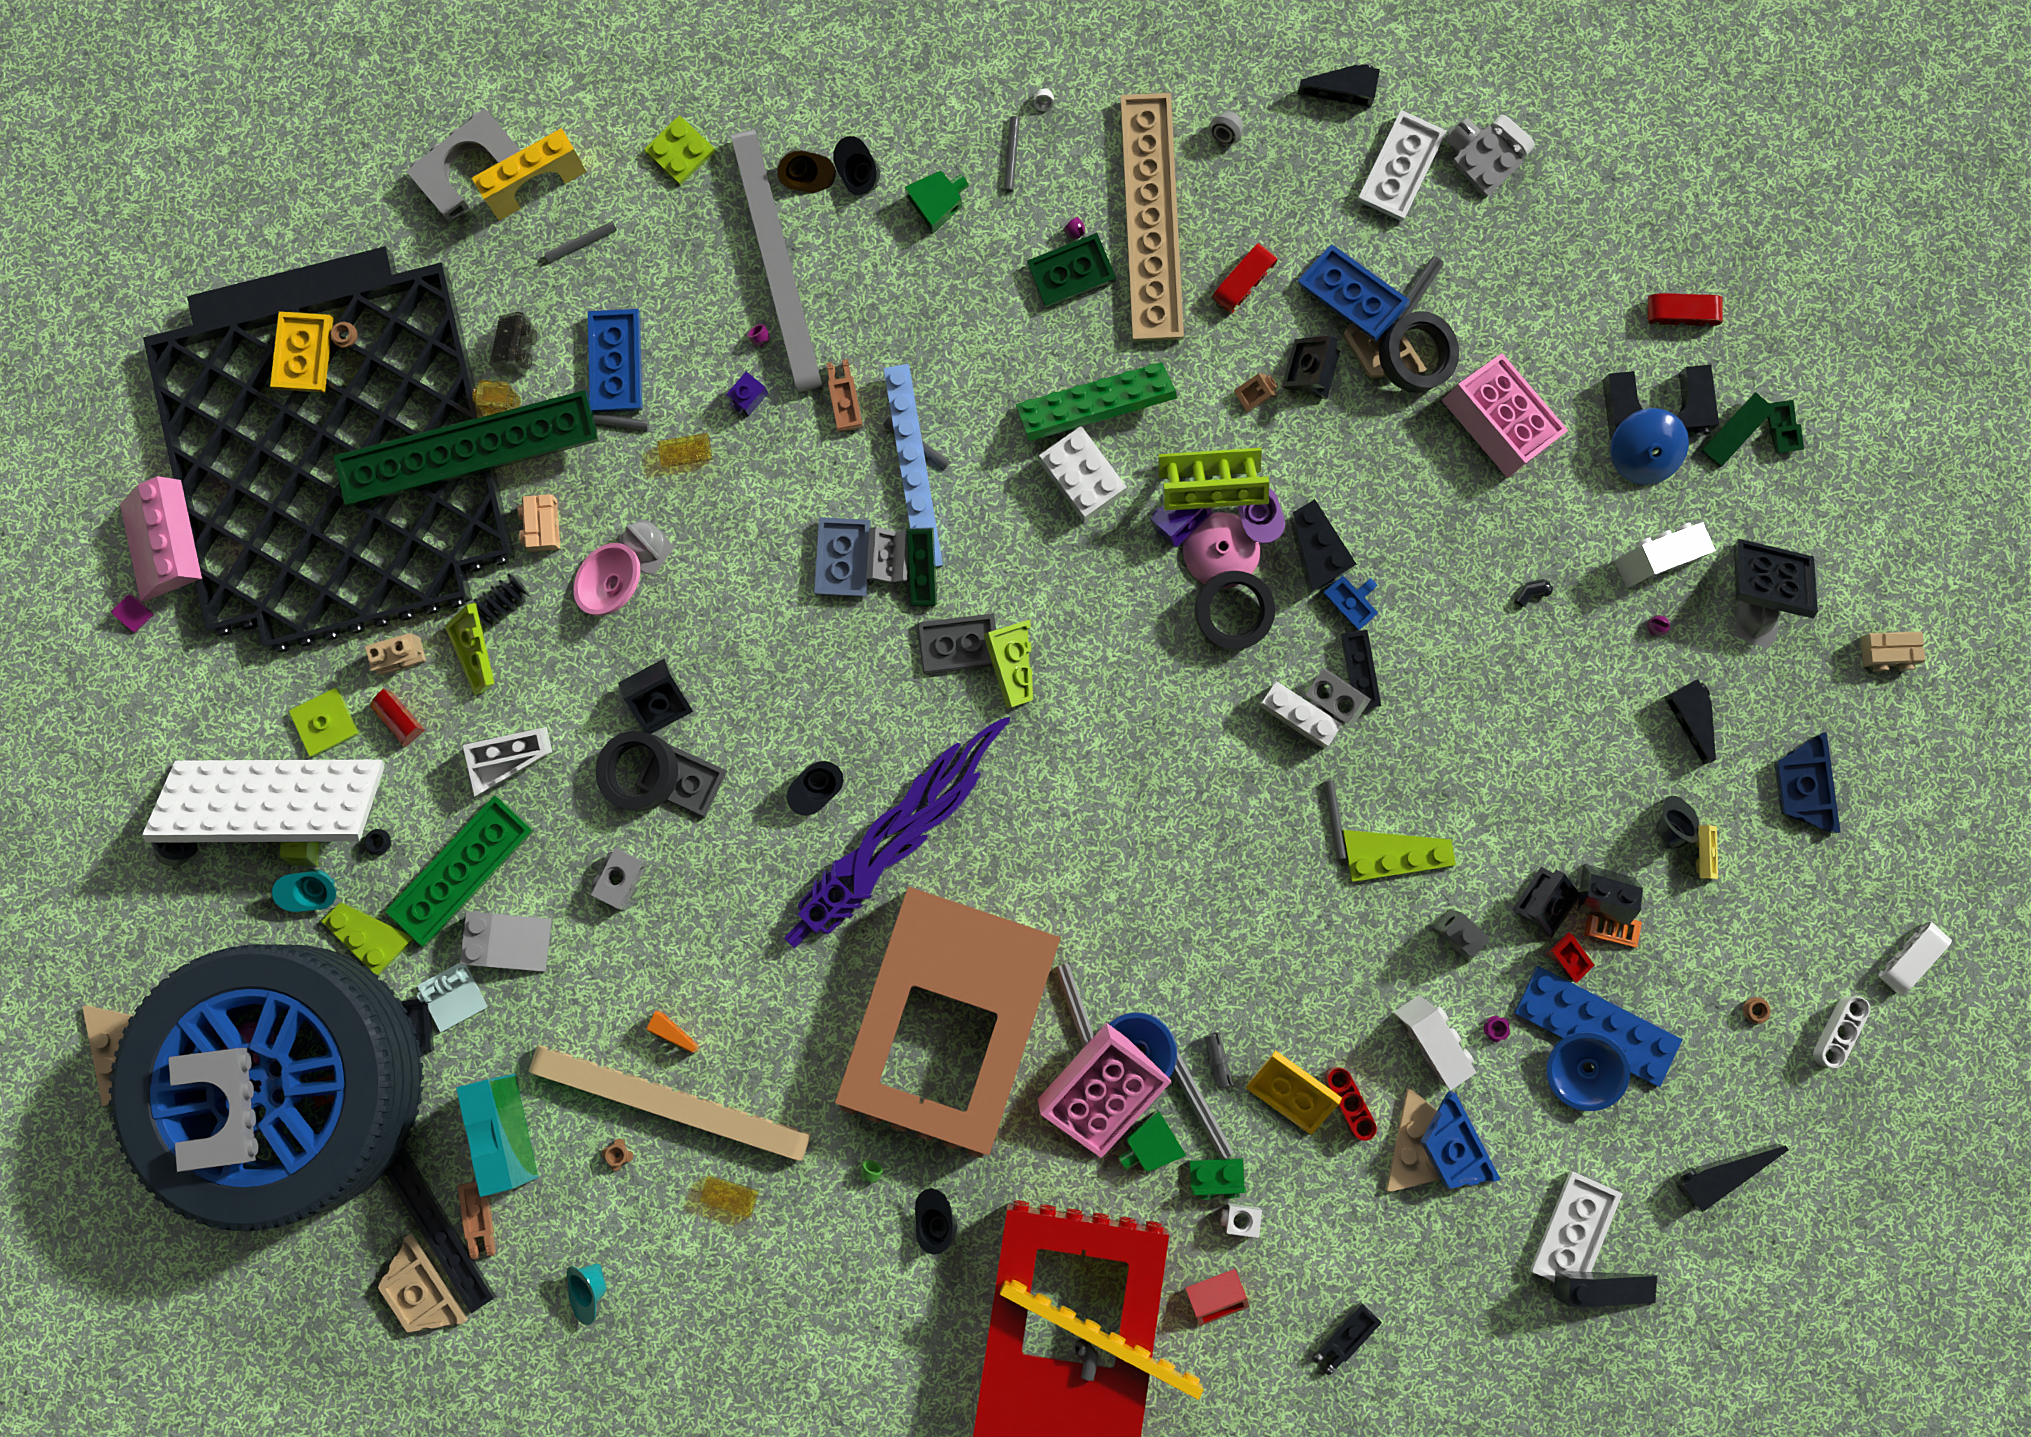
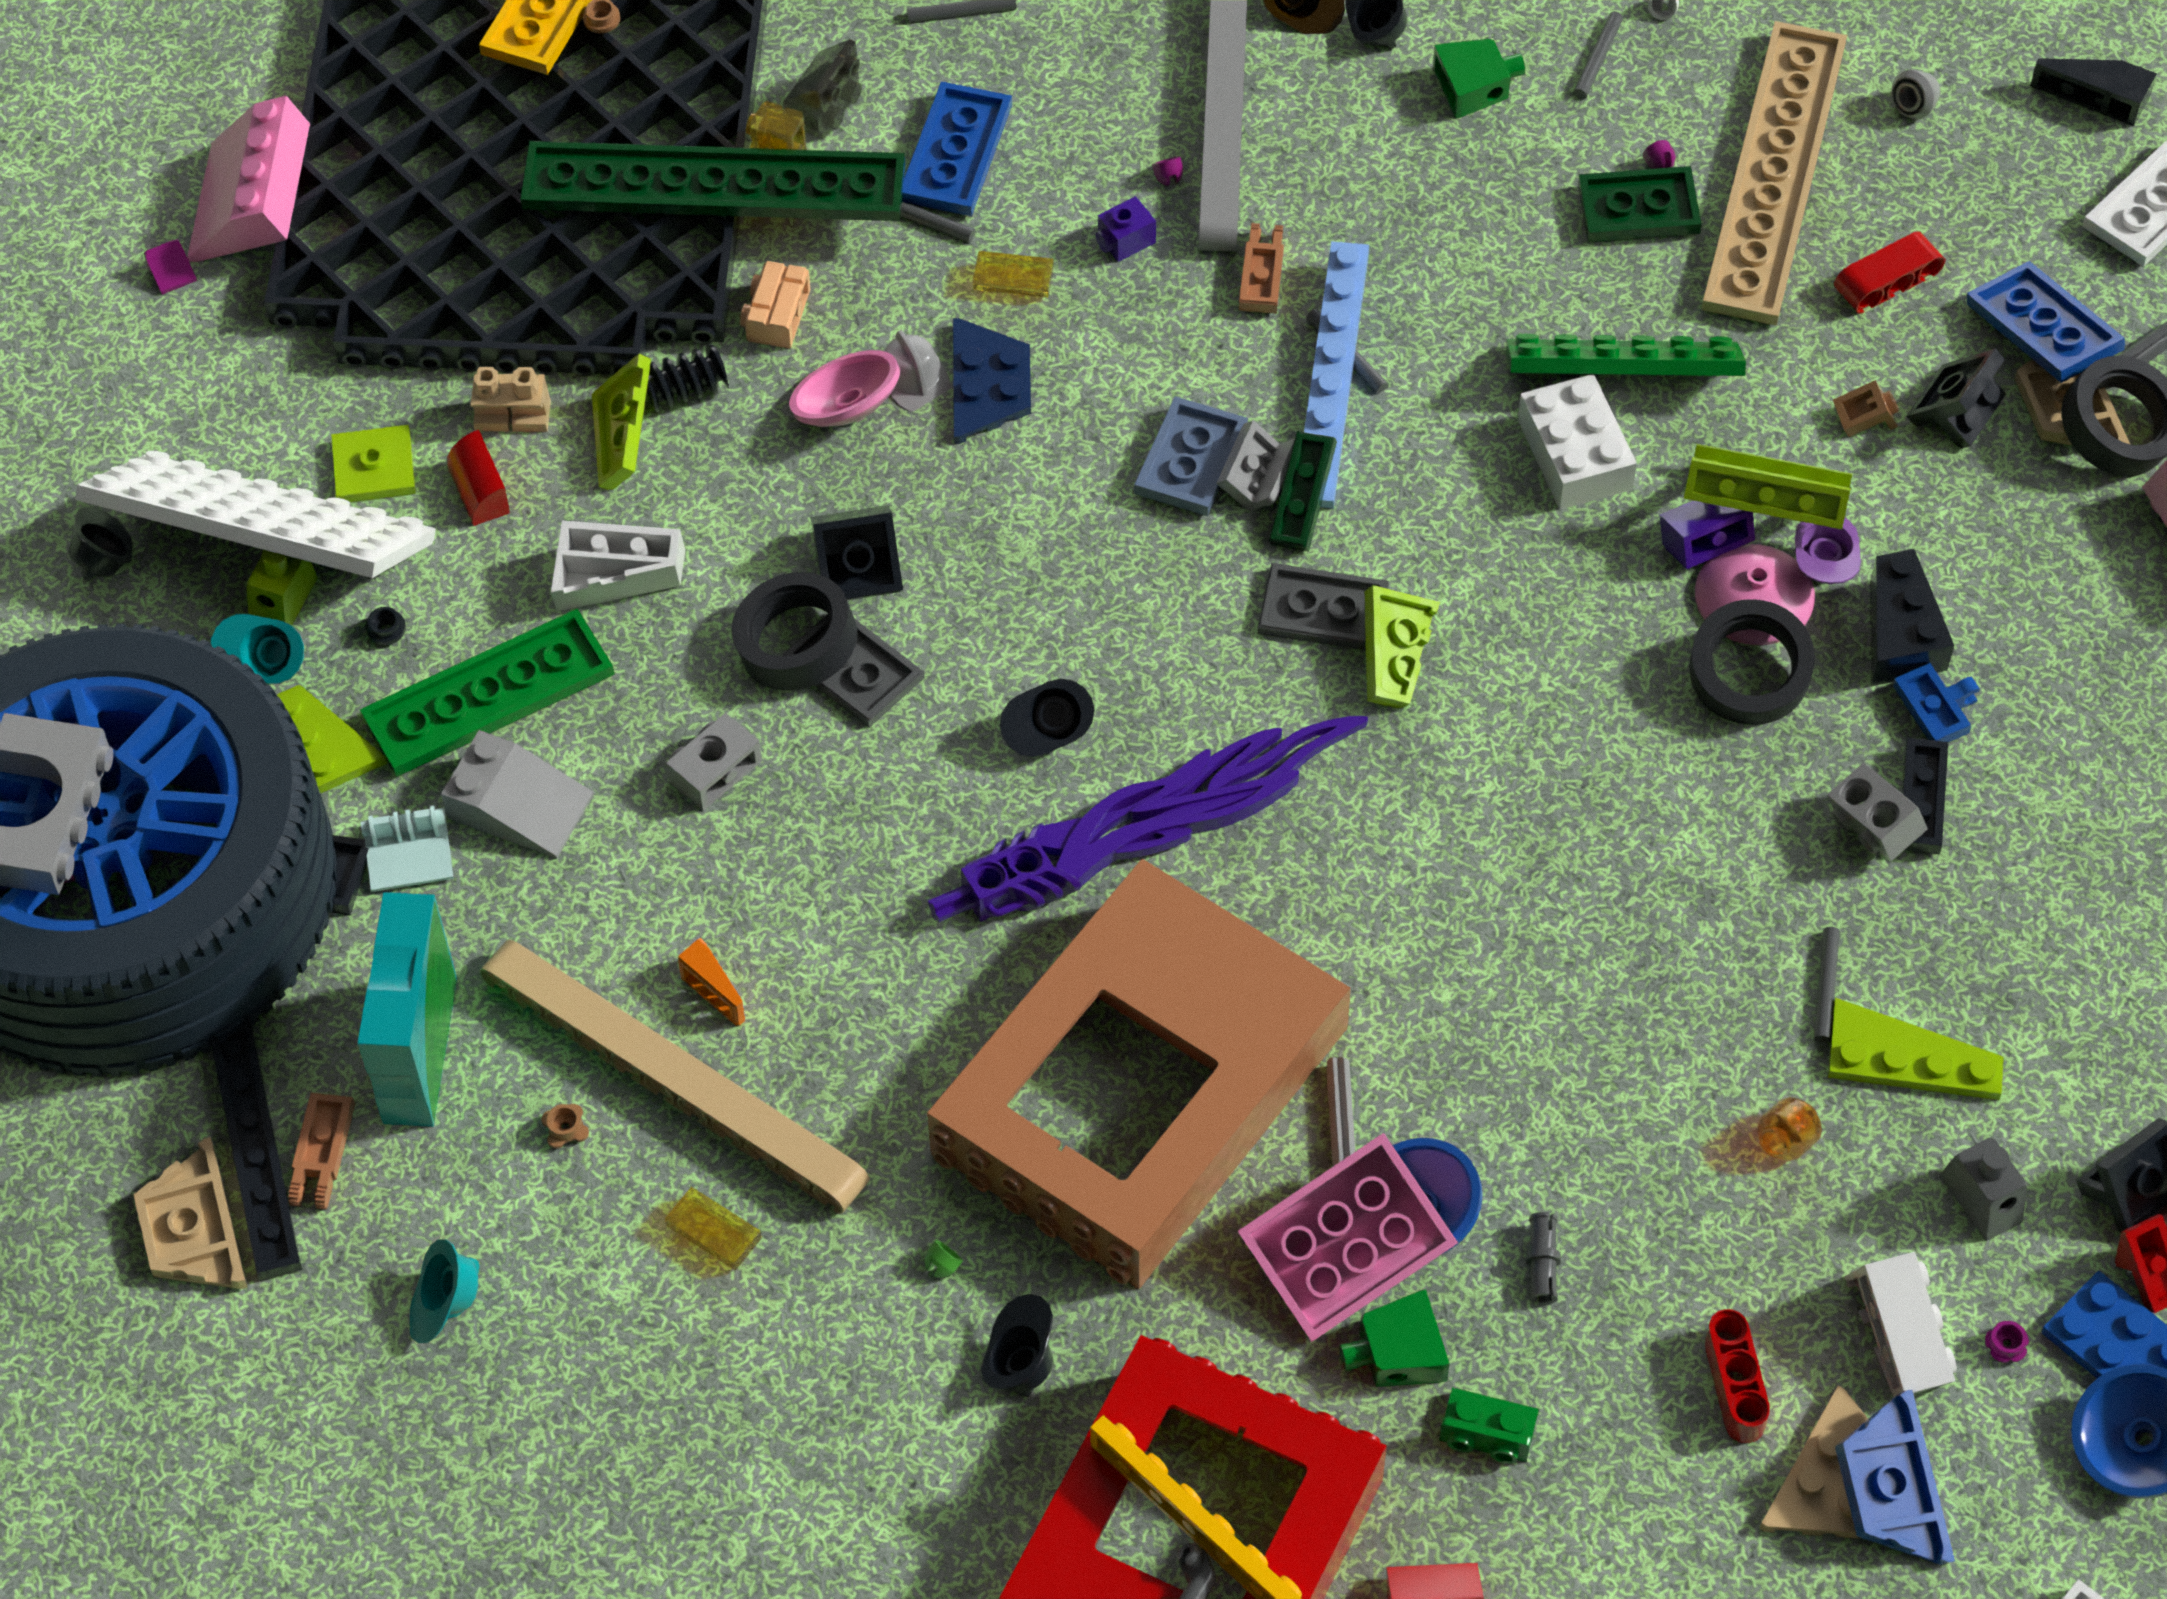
camera: 15 degrees right, 25 degrees down
(695, 536) = (988, 379): none -> dark blue wing
(1201, 1108) = (1492, 1316): light grey axle -> none
(1250, 1229) = (1513, 1512): white brick -> none
(1293, 1092) = (1649, 1328): yellow plate -> none
(1300, 715) = (1812, 824): white brick -> none
(1339, 930) = (1789, 1129): none -> clear orange head

